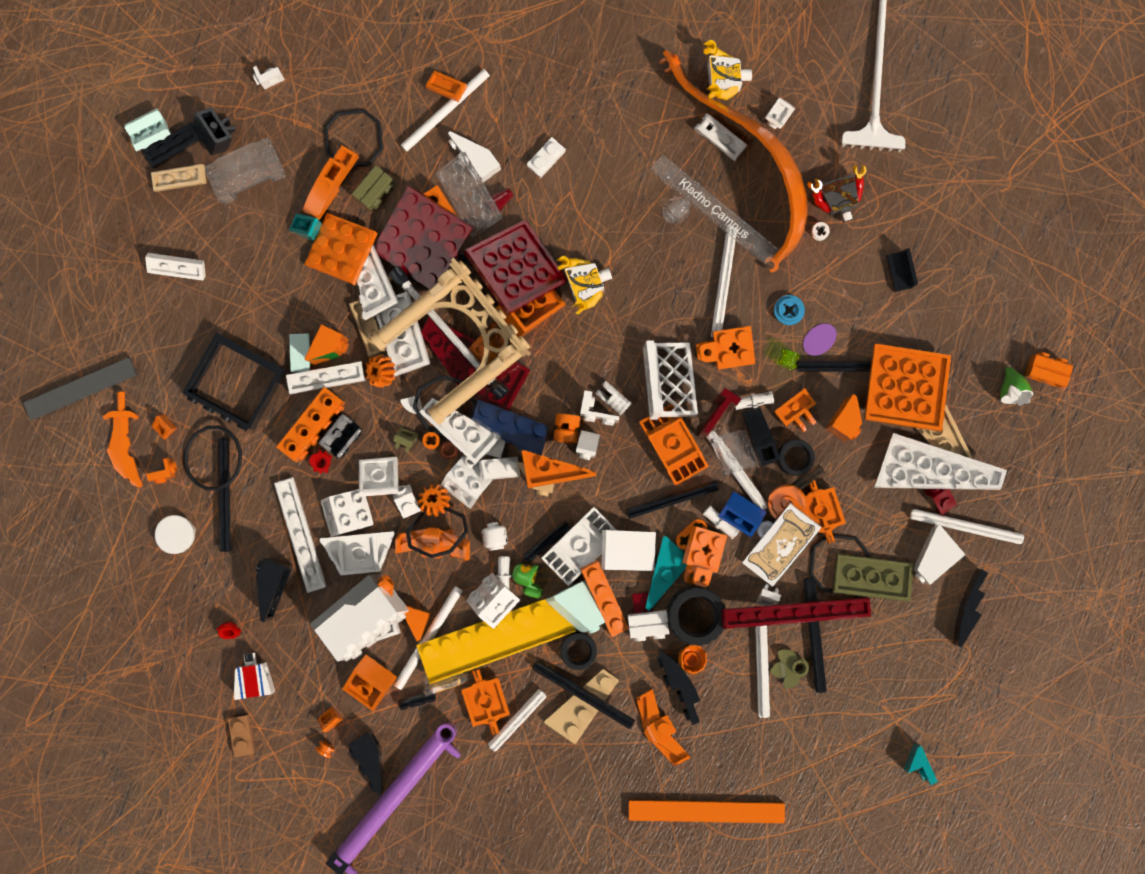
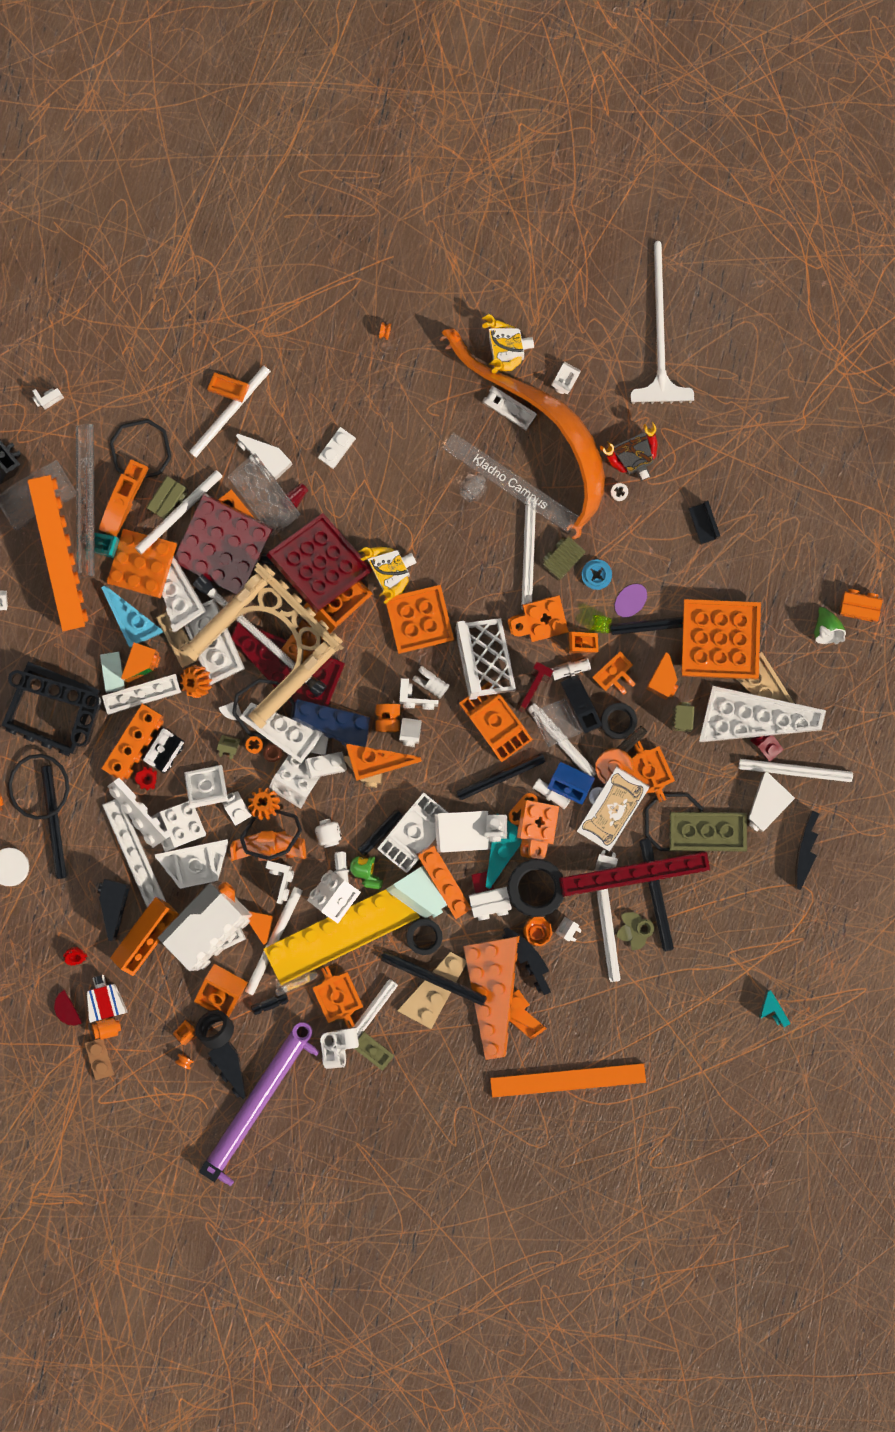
camera: 10 degrees left, 0 degrees up
(214, 684) = (65, 1010): none -> dark red tile
(246, 370) = (63, 696): none -> black beam
(250, 707) = (106, 1028): none -> orange brick
(255, 225) = (56, 552): none -> orange brick
(292, 181) = (85, 500): none -> clear tile
(297, 619) = (144, 936): none -> orange brick
(307, 494) = (137, 812): none -> white wing
(324, 306) = (132, 623): none -> medium azure wing
(350, 713) = (222, 1036): none -> black tyre
(381, 202) = (178, 512): none -> white piece
(440, 567) = (277, 869): none -> white bracket
(476, 756) = (334, 1053): none -> white piece
(515, 760) = (374, 1051): none -> olive plate
(606, 48) = (385, 331): none -> orange bush
(609, 334) = (419, 619): none -> orange plate
(642, 698) = (493, 975): none -> orange wing
(662, 550) = (496, 828): none -> white bracket
(722, 660) = (567, 929): none -> white tile
(758, 290) = (563, 557): none -> olive brick
(767, 375) = (582, 642): none -> orange slope
(861, 461) = (683, 717): none -> olive brick

